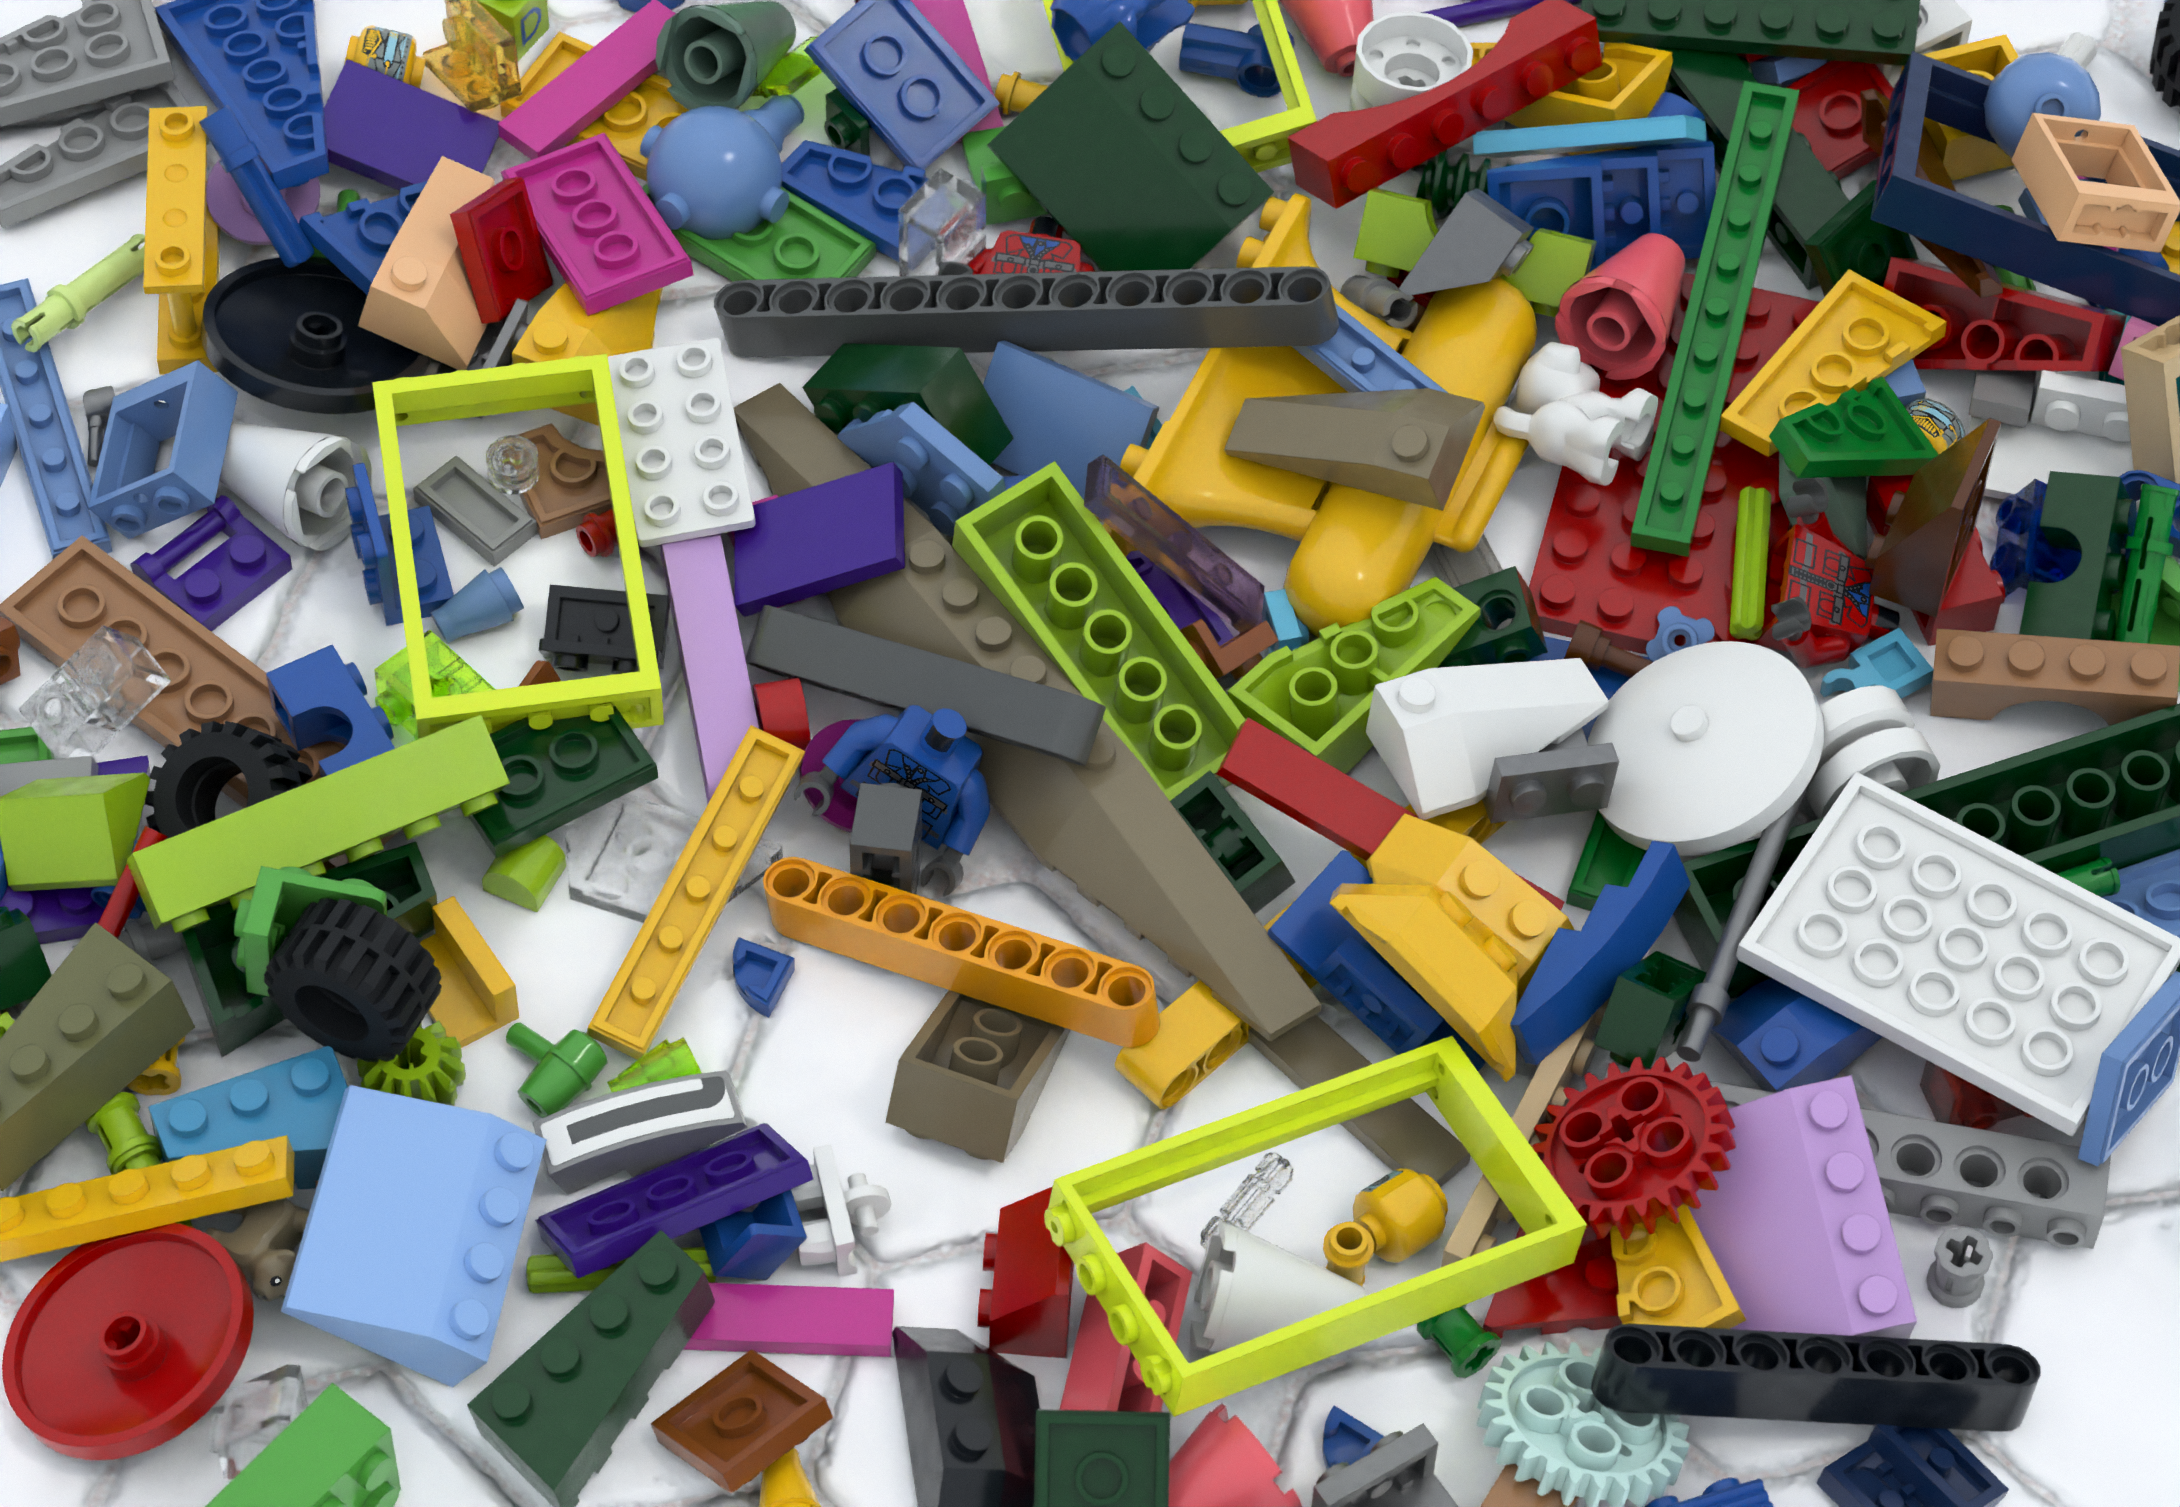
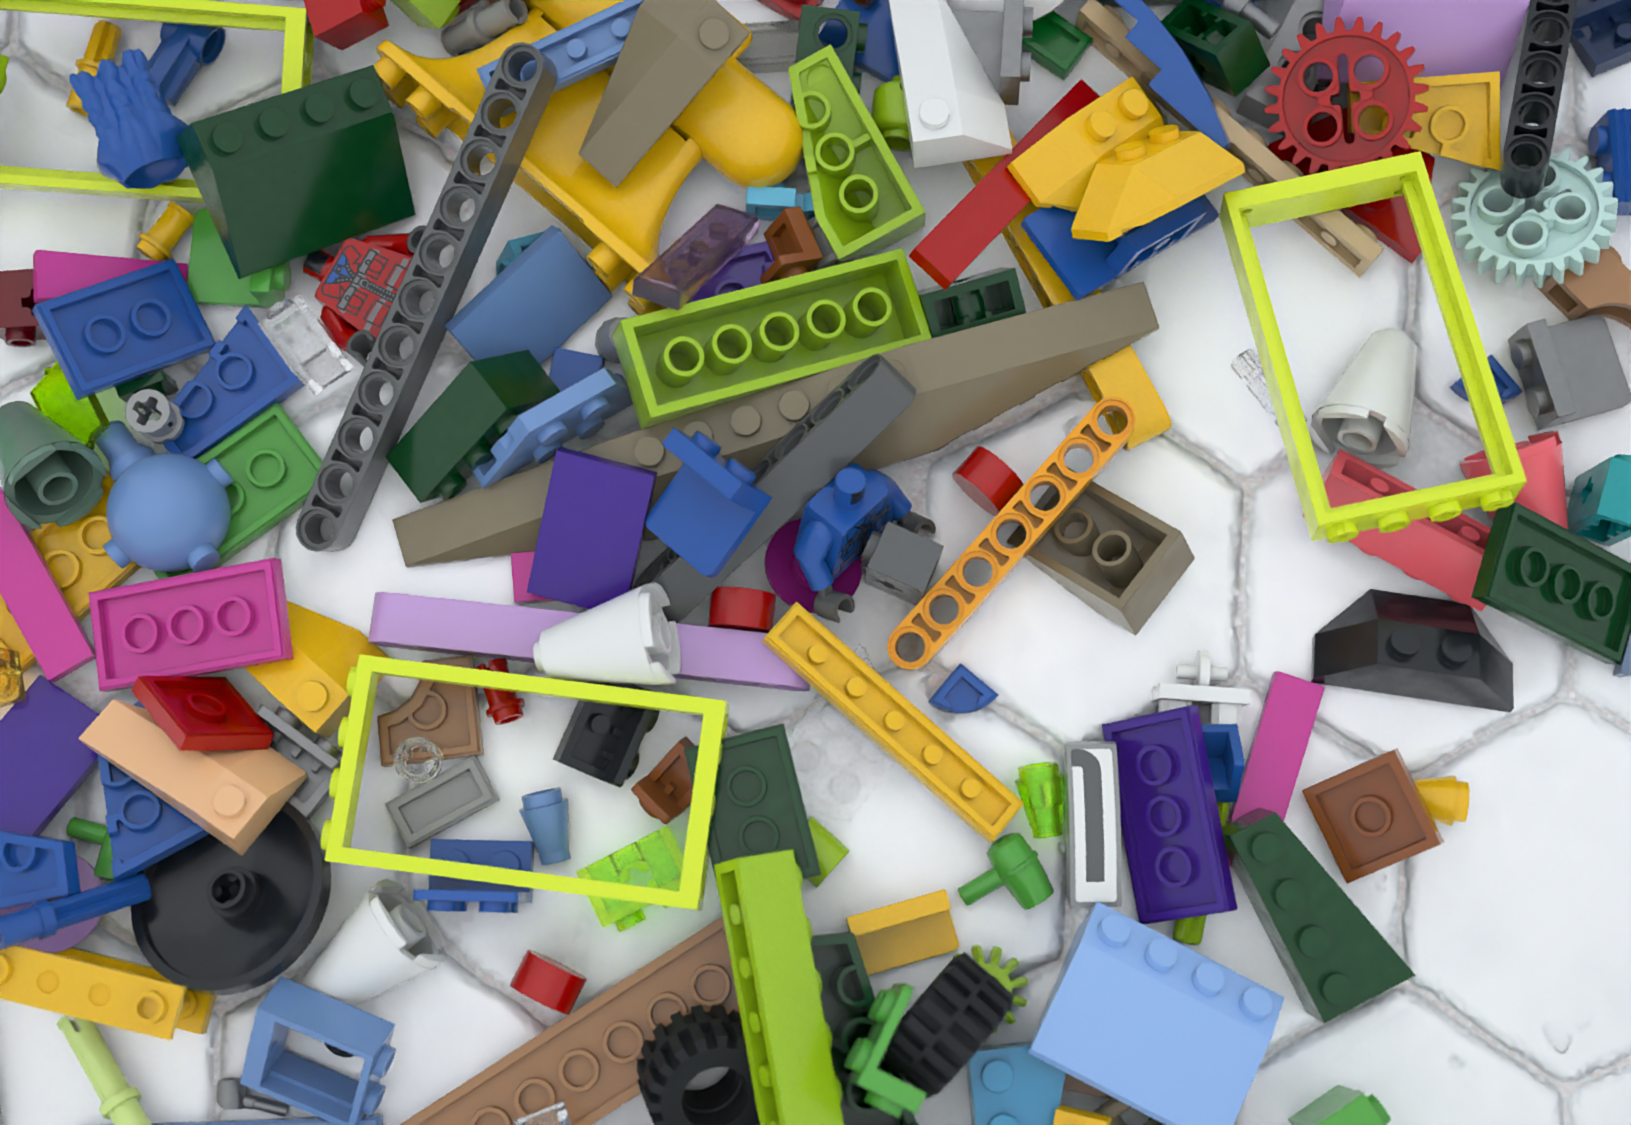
camera: 70 degrees left, 25 degrees up
(226, 576) = (446, 1027): dark purple plate -> none
(298, 633) = (548, 982): none -> red piece
(325, 701) = (624, 976): blue arch -> none
(680, 442) = (447, 615): white bracket -> none
(702, 587) = (614, 642): none -> white cone
(803, 120) = (154, 402): none -> light grey bush
(885, 611) = (706, 504): none -> blue bracket
(1027, 907) = (987, 480): none -> red piece
(1031, 1283) = (1308, 572): red slope -> none
(1348, 1250) = (1351, 336): yellow pin -> none
(1398, 1133) = (1211, 275): dark tan tile -> none
(1401, 1213) = (1318, 285): yellow head -> none
(1461, 1340) = (1411, 281): green bush -> none

